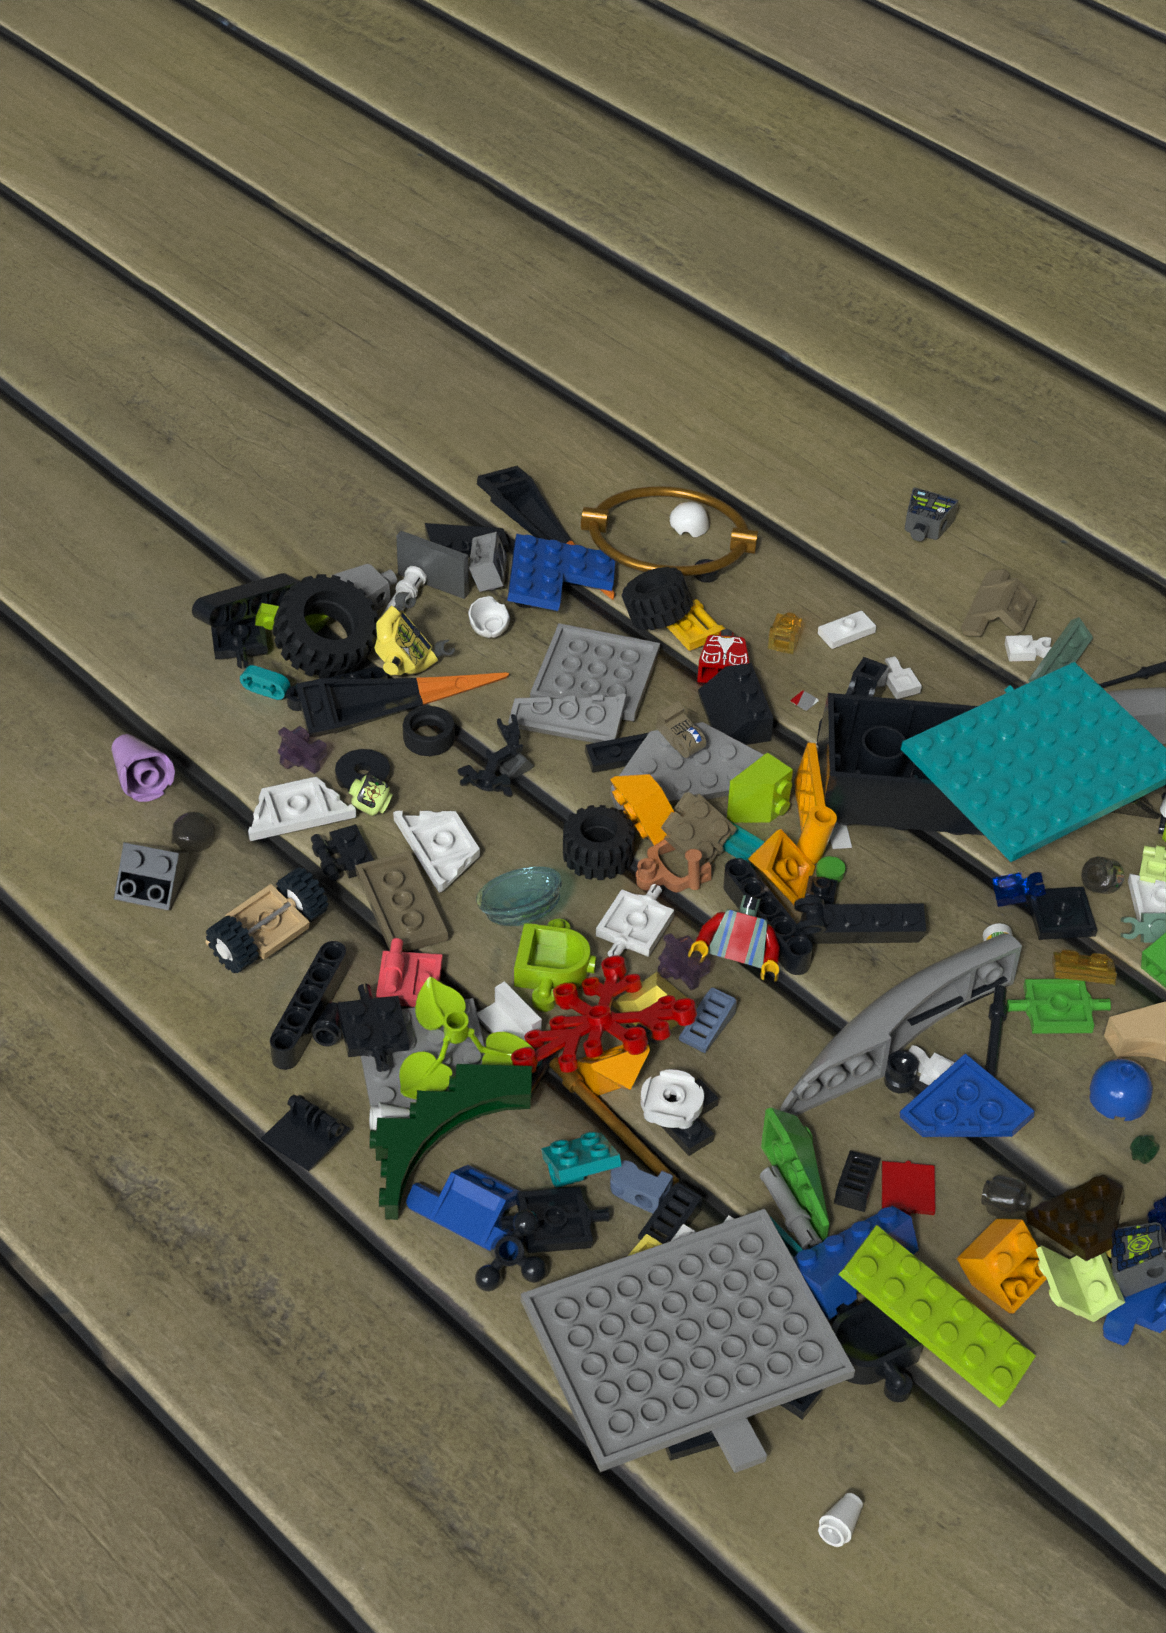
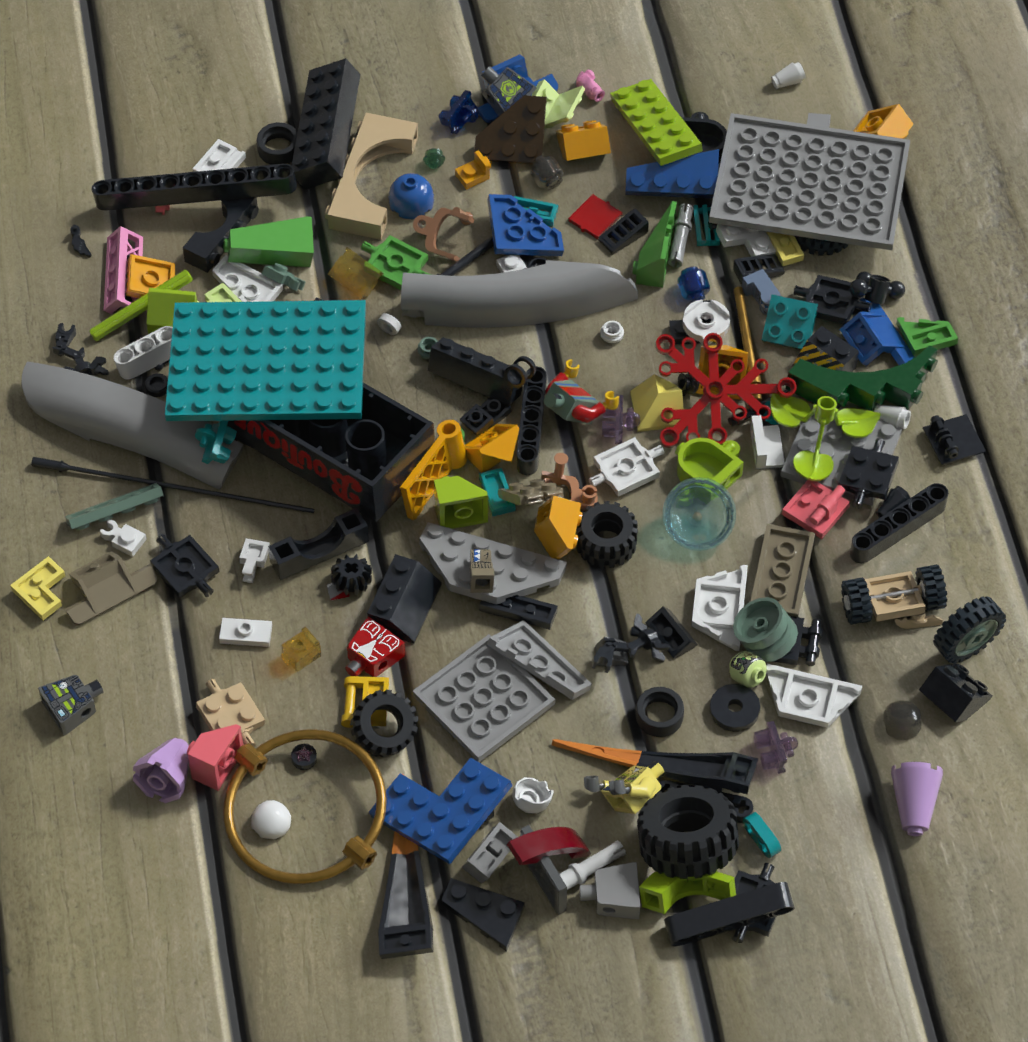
camera: 145 degrees left, 10 degrees up
(163, 905) = (969, 629): none -> black wheel
(374, 819) = (765, 629): none -> sand green wheel
(414, 1239) = (925, 333): none -> bright green wing
(433, 568) = (547, 842): none -> dark red slope
(470, 806) = (671, 632): none -> black slope
(508, 1145) = (829, 352): none -> black slope
(659, 1498) = (886, 121): none -> light orange slope
(718, 1004) = (627, 383): sand blue slope -> none
(725, 1150) = (693, 284): none -> clear blue head
(771, 518) = (213, 755): none -> coral slope
(771, 1049) = (612, 327): none -> white plate
(796, 569) = (229, 708): none -> tan plate
(801, 499) = (163, 770): none -> lavender cone
(801, 703) = (351, 574): none -> black gear
(937, 939) = (426, 343): none -> sand green plate
(950, 646) = (184, 566): none -> black plate
(981, 1157) = (534, 205): none -> teal tile
(1050, 573) = (35, 586): none -> light yellow plate
(1060, 1054) = (434, 224): none -> nougat piece
(1068, 1352) = (592, 89): none -> bright pink arm
(1087, 1159) = (474, 171): none -> light orange bracket

